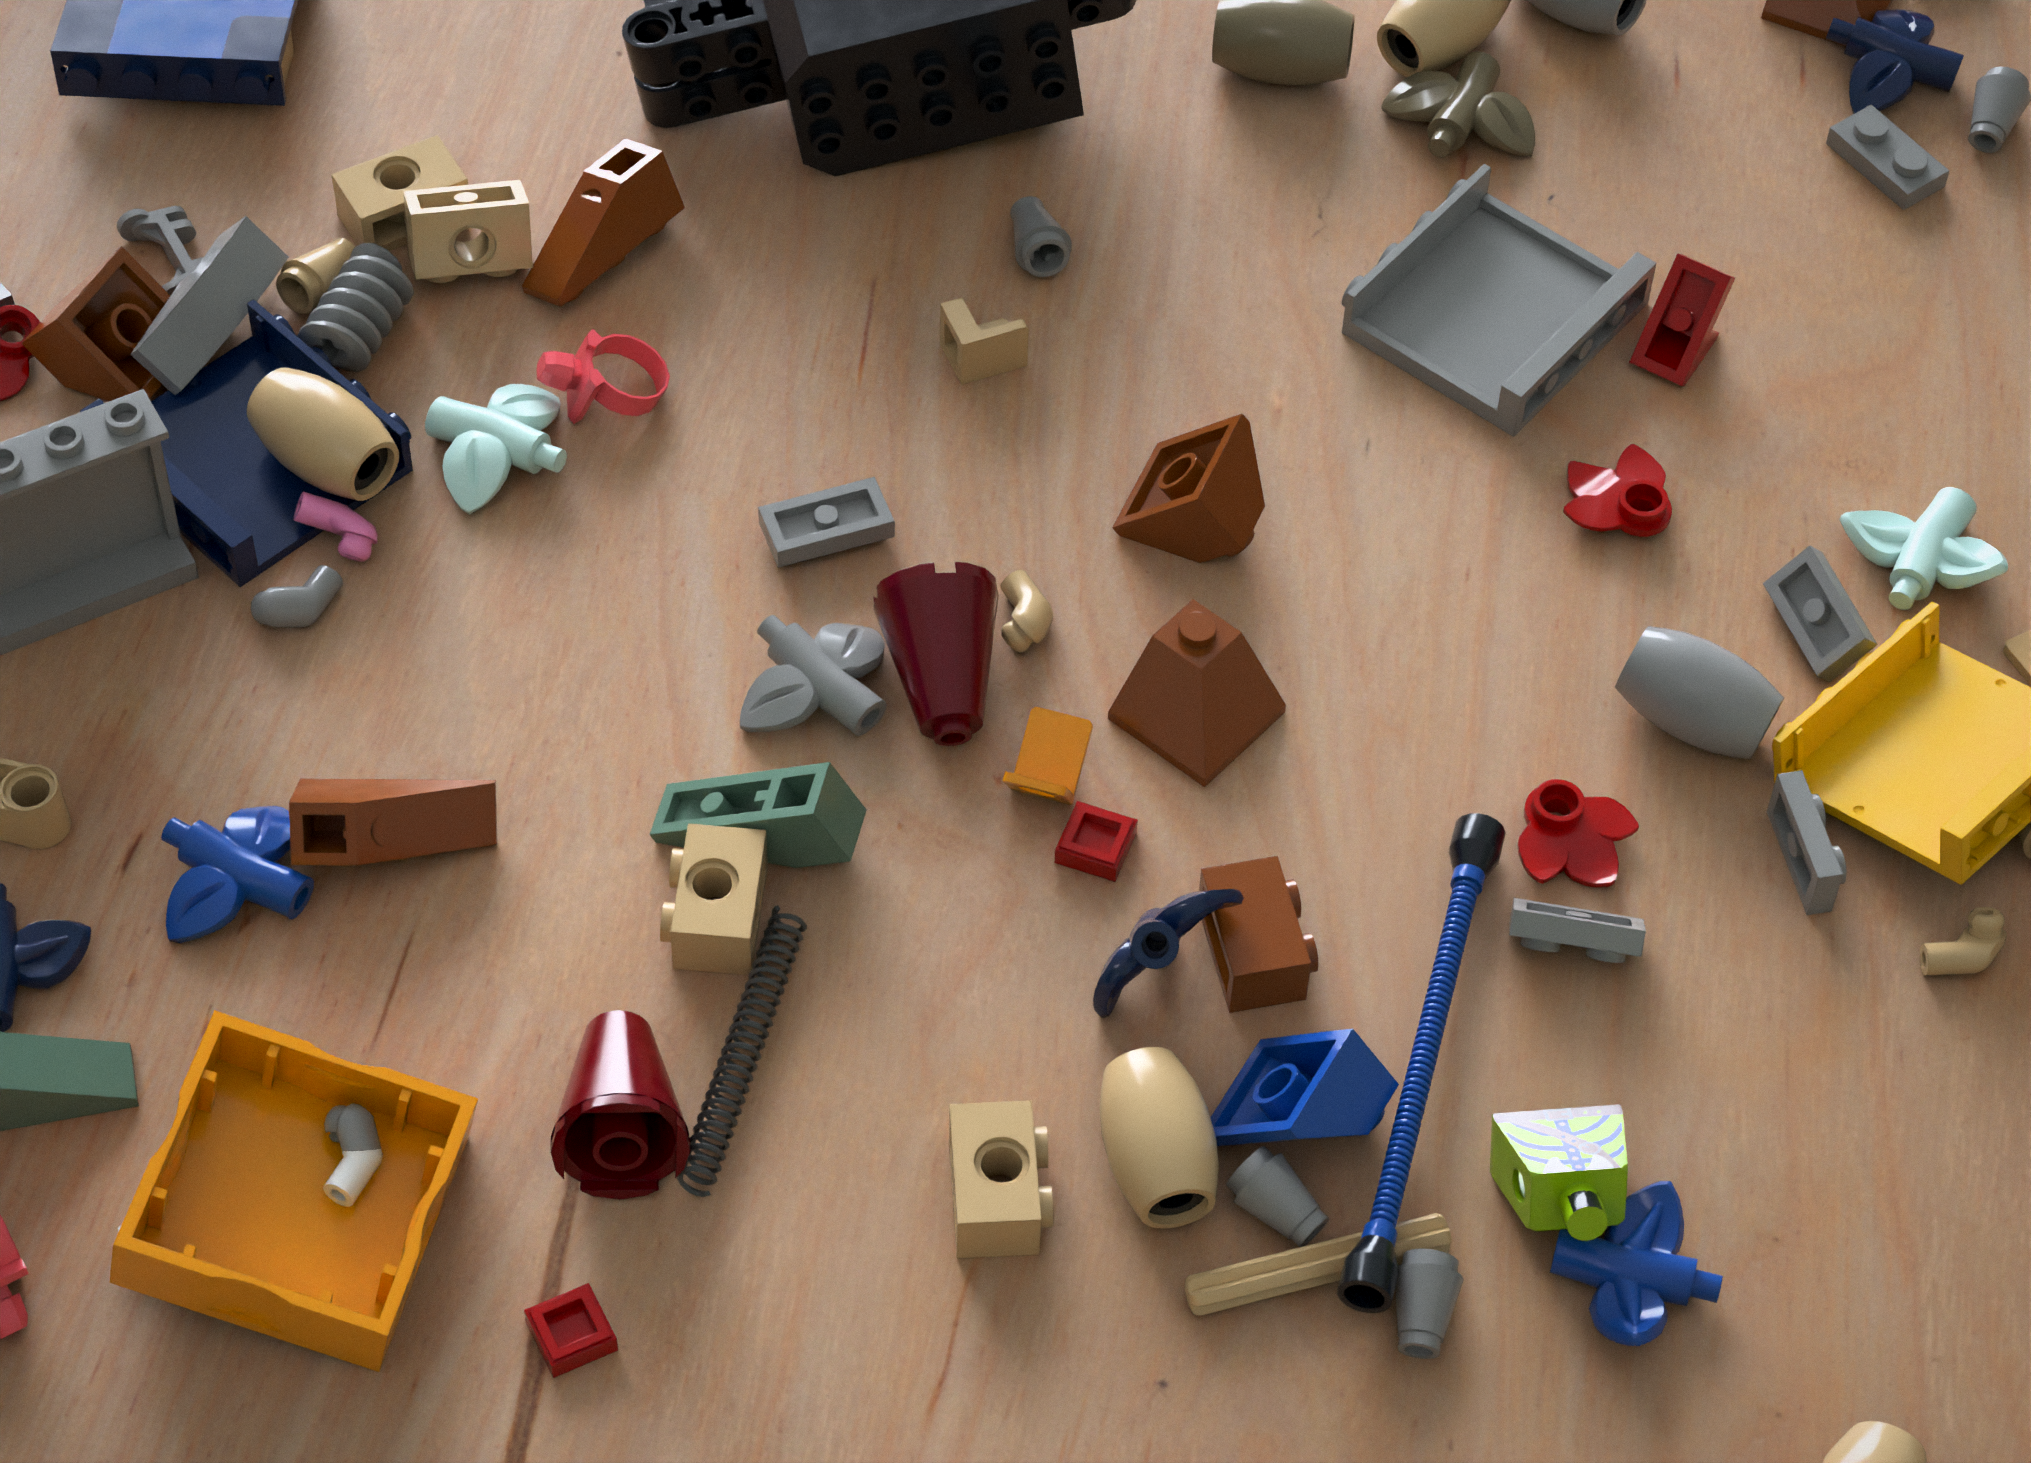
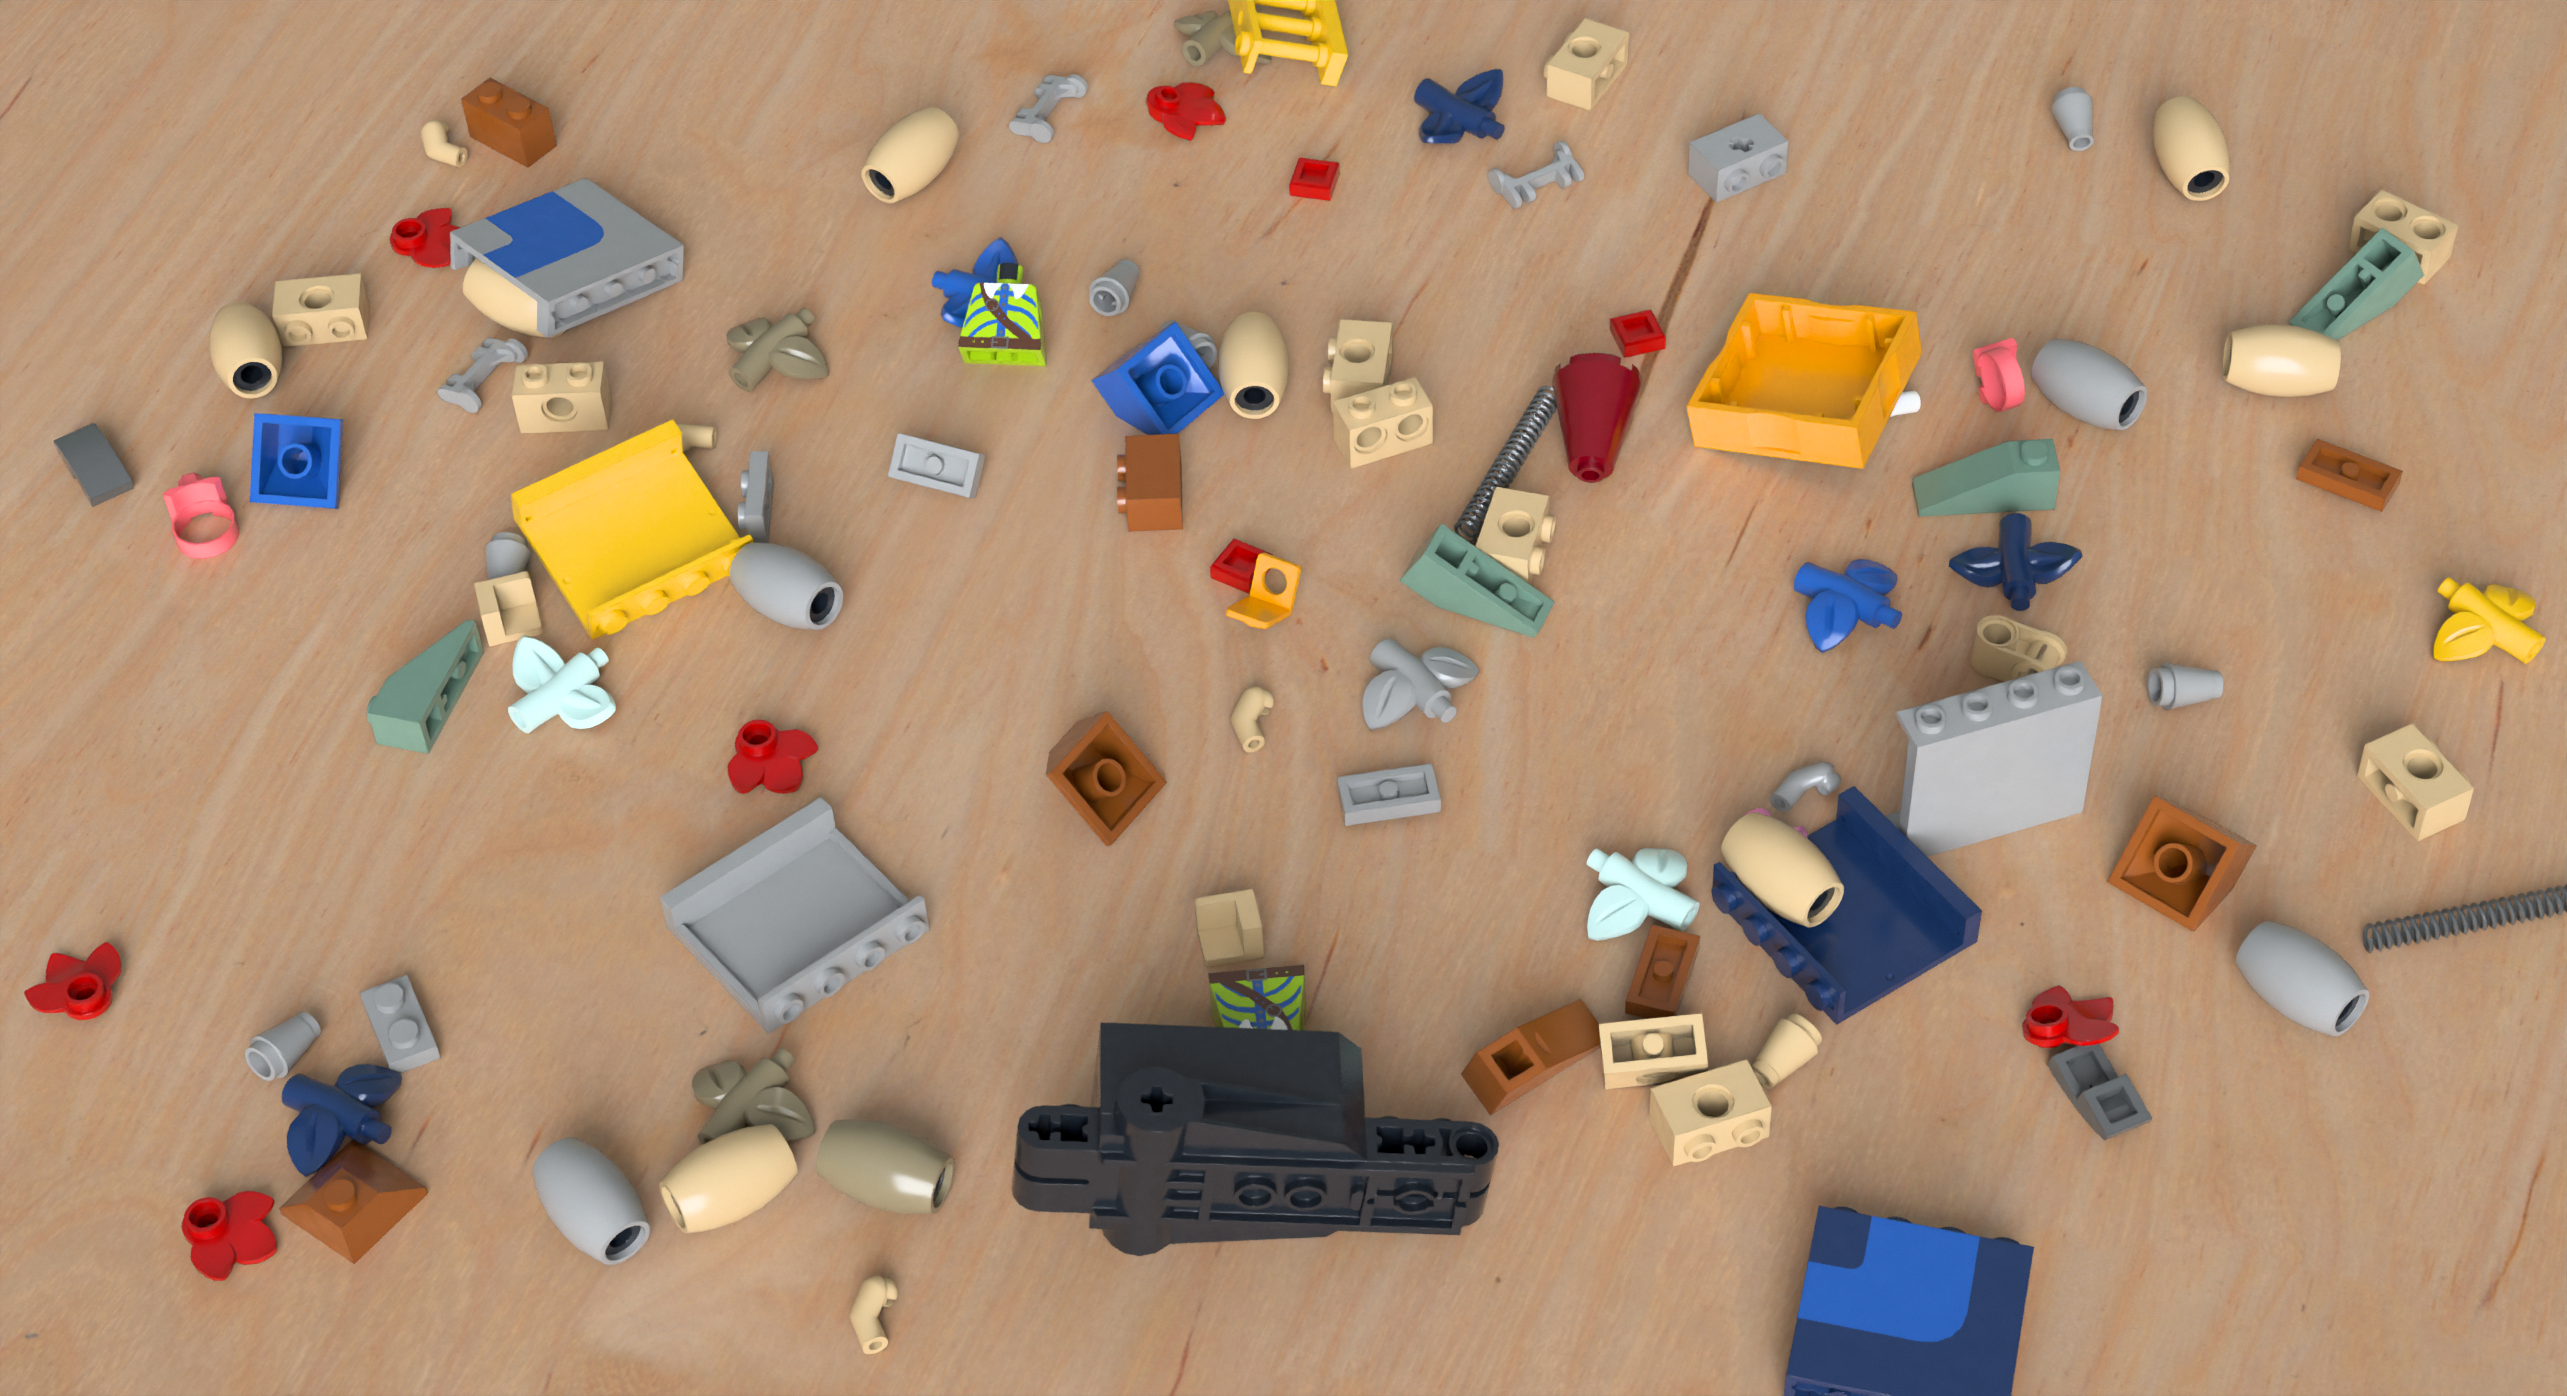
camera: 165 degrees left, 5 degrees down
(97, 327) = (1964, 995): dark orange slope -> none
(170, 230) = (1919, 1122): light grey piece -> none
(209, 304) = (1876, 1013): light grey slope -> none
(358, 308) = (1752, 997): light grey piece -> none
(361, 1150) = (1771, 395): arm -> none
(388, 819) = (1757, 599): dark orange slope -> none
(464, 344) = (1662, 973): none -> dark orange plate
(585, 383) = (1565, 934): coral piece -> none
(926, 243) = (1259, 998): none -> torso
(940, 1062) = (1383, 422): none -> tan brick
(941, 644) = (1321, 679): dark red cone -> none
(1039, 240) = (1159, 1003): light grey cone -> none
(1156, 941) = (1220, 457): dark blue plant -> none
(1197, 694) = (1143, 646): dark orange slope -> none
(1300, 1267) = (1152, 318): tan axle -> none
(1372, 1266) = (986, 518): blue hose -> none
(1577, 841) = (911, 534): red plate -> none
(1682, 320) = (652, 871): red slope -> none
(1819, 614) = (668, 644): light grey plate -> none
(1912, 1114) = (775, 347): none -> dark tan plant

